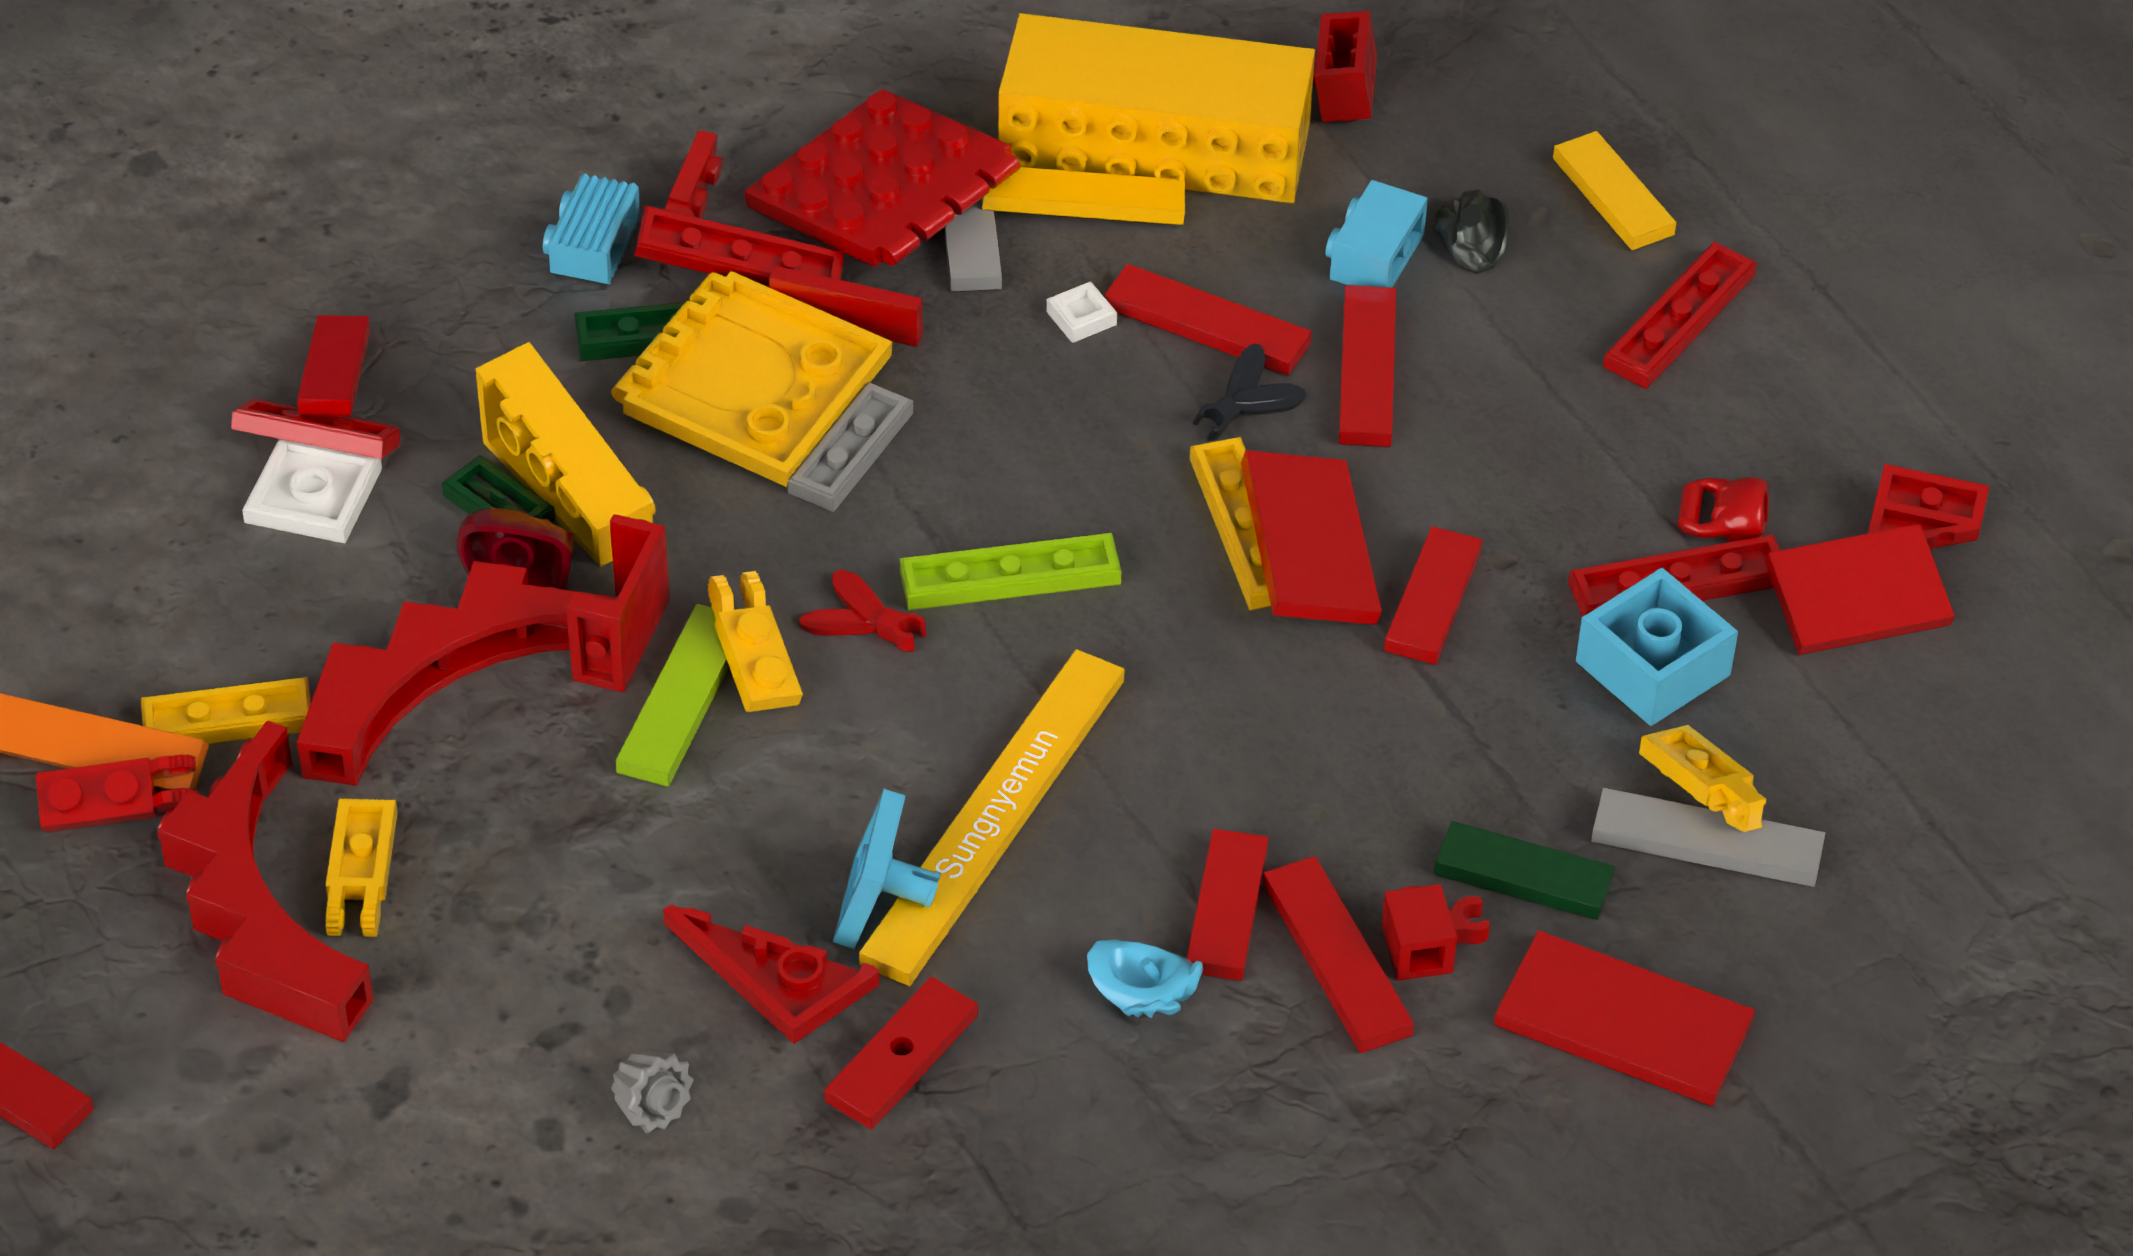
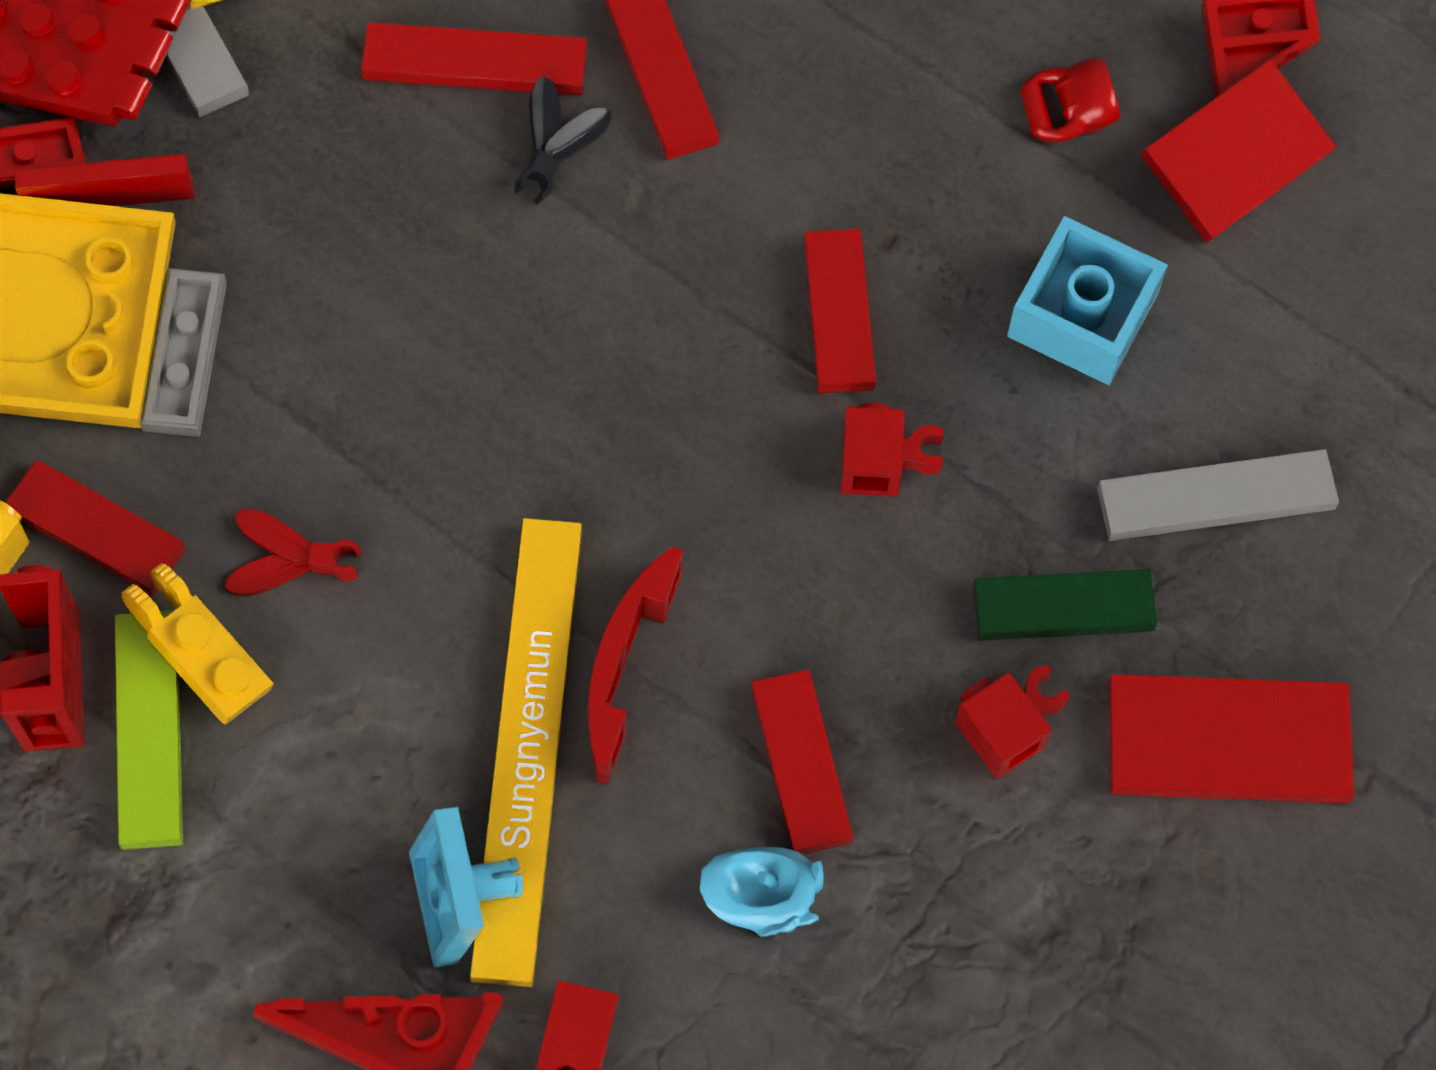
camera: 25 degrees left, 20 degrees up
(710, 537) = (94, 526): none -> red tile
(1010, 571) = (412, 444): lime tile -> none
(1081, 312) = (344, 96): white tile -> none
(1150, 736) = (648, 598): none -> red slope
(1223, 486) = (619, 294): yellow tile -> none
(1310, 538) = (695, 293): red tile -> none
(1338, 954) = (932, 777): red tile -> none
(1413, 698) = (877, 450): none -> red brick
(1705, 571) = (1069, 189): red tile -> none
(1706, 774) = (1193, 430): yellow hinge -> none

